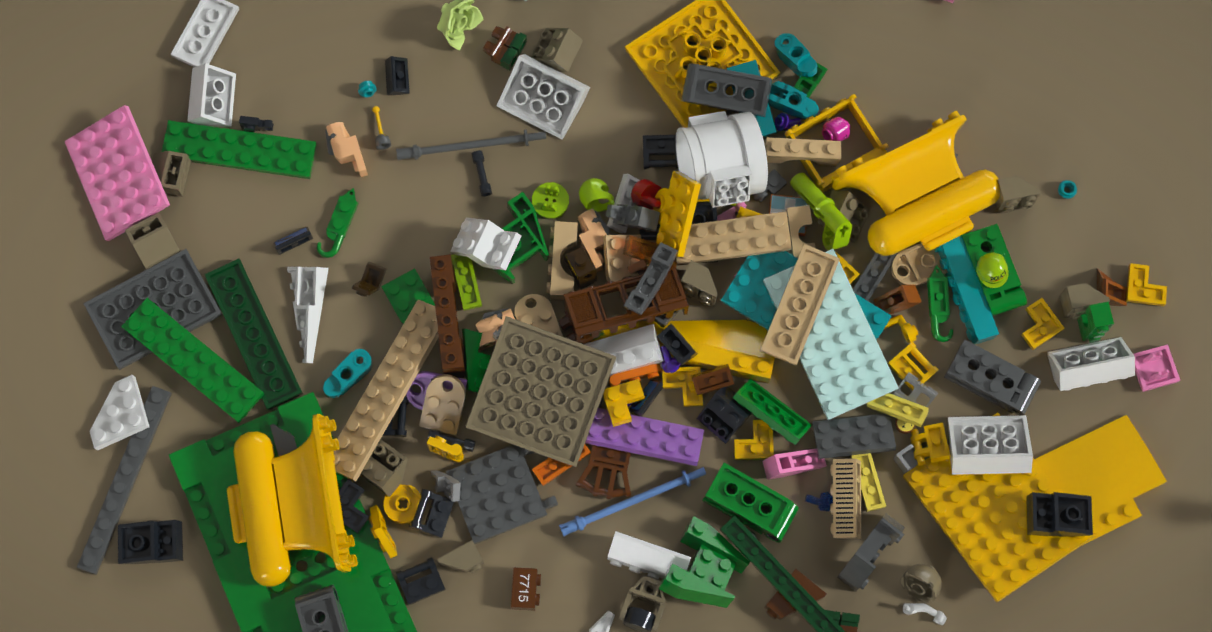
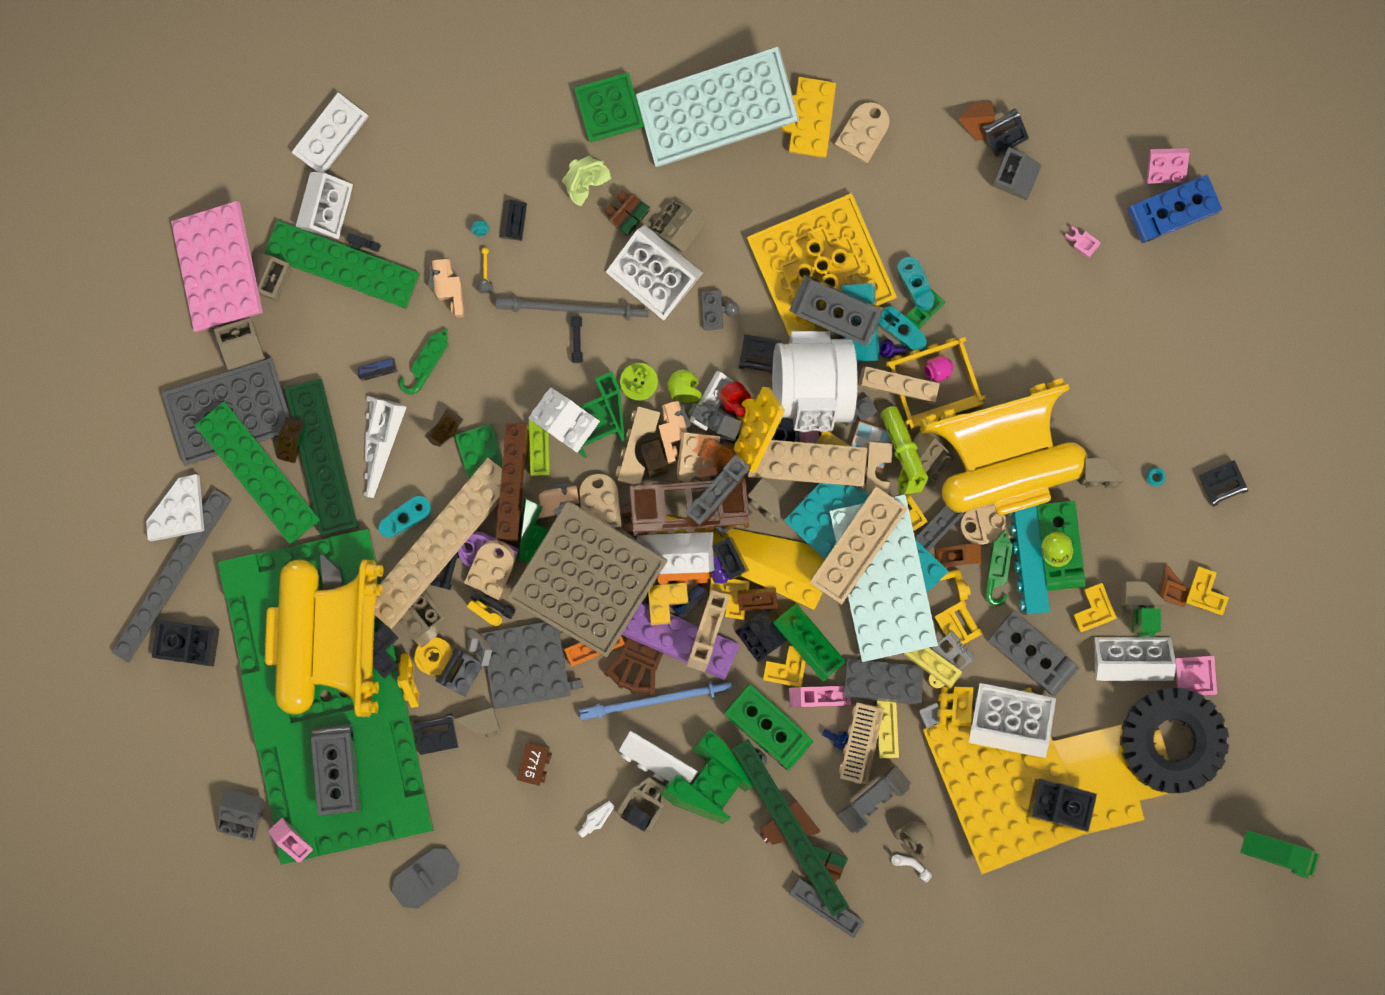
camera: 15 degrees right, 10 degrees up
(218, 322) = (288, 439): none -> dark brown bracket
(608, 119) = (714, 310): none -> dark grey plate
(670, 419) = (708, 631): none -> tan arch
(1128, 177) = (1219, 477): none -> black plate
(1165, 401) = (1208, 735): none -> black tyre

